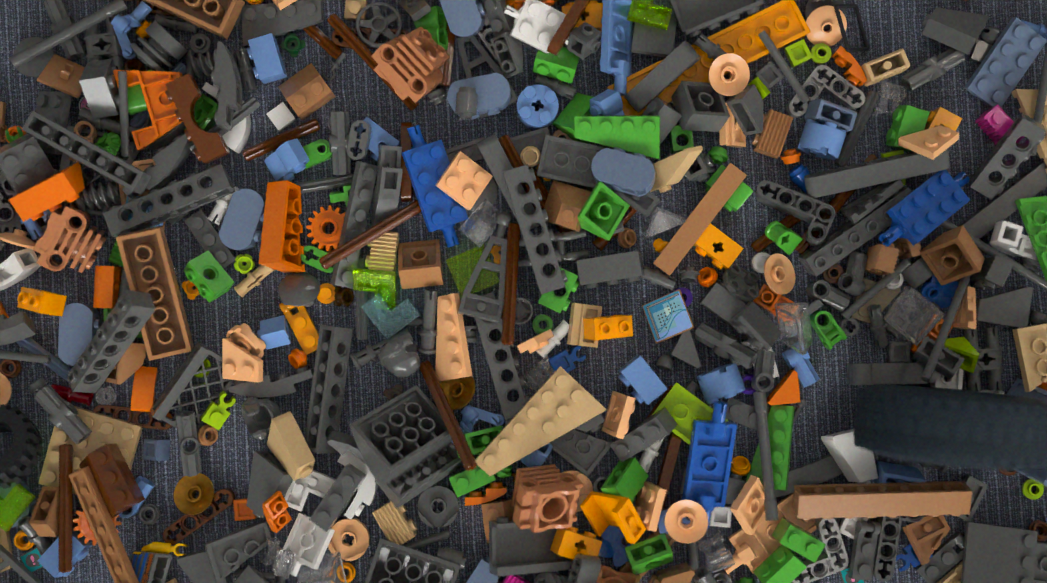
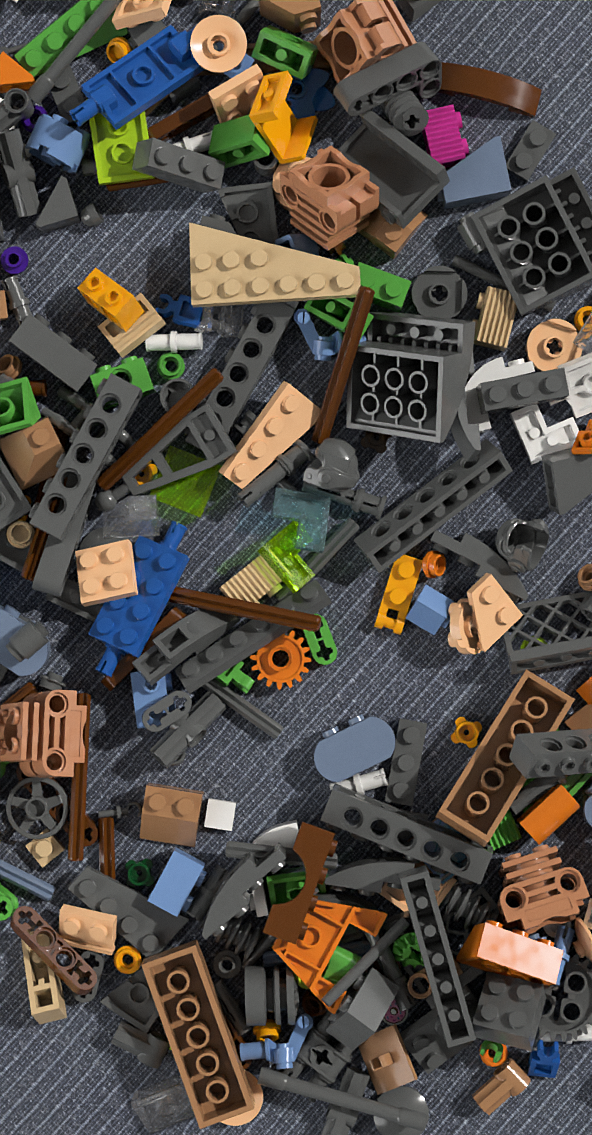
camera: 135 degrees left, 0 degrees up
(208, 266) = (431, 737): bright green brick -> none
(217, 413) = (561, 588): lime plate -> none
(250, 264) = (400, 701): lime plate -> none
(253, 279) = (400, 683): tan pin -> none
(276, 141) = (242, 791): reddish brown axle -> none
(282, 228) = (324, 702): orange wedge -> none
(287, 160) = (256, 762): medium blue brick -> none
(290, 446) = (521, 484): tan slope -> none
(299, 289) = (367, 628): dark grey dish -> none
(313, 153) = (225, 747): bright green plate -> none
(326, 293) = (345, 600): light orange plate -> none
(343, 296) = (332, 580): dark brown plate -> none
(420, 264) = (227, 537): medium nougat slope -> none
(452, 388) = (311, 369): pearl gold dish -> none
(493, 491) = (375, 255): orange slope -> none
(536, 342) = (194, 352): light nougat wing -> none
(565, 541) = (346, 131): light orange brick -> none
(618, 415) = (183, 207): light nougat plate -> none
(642, 380) = (128, 218): medium blue brick -> none
(668, 316) = (45, 254): piece -> none
(721, 517) = (183, 20): white tile -> none

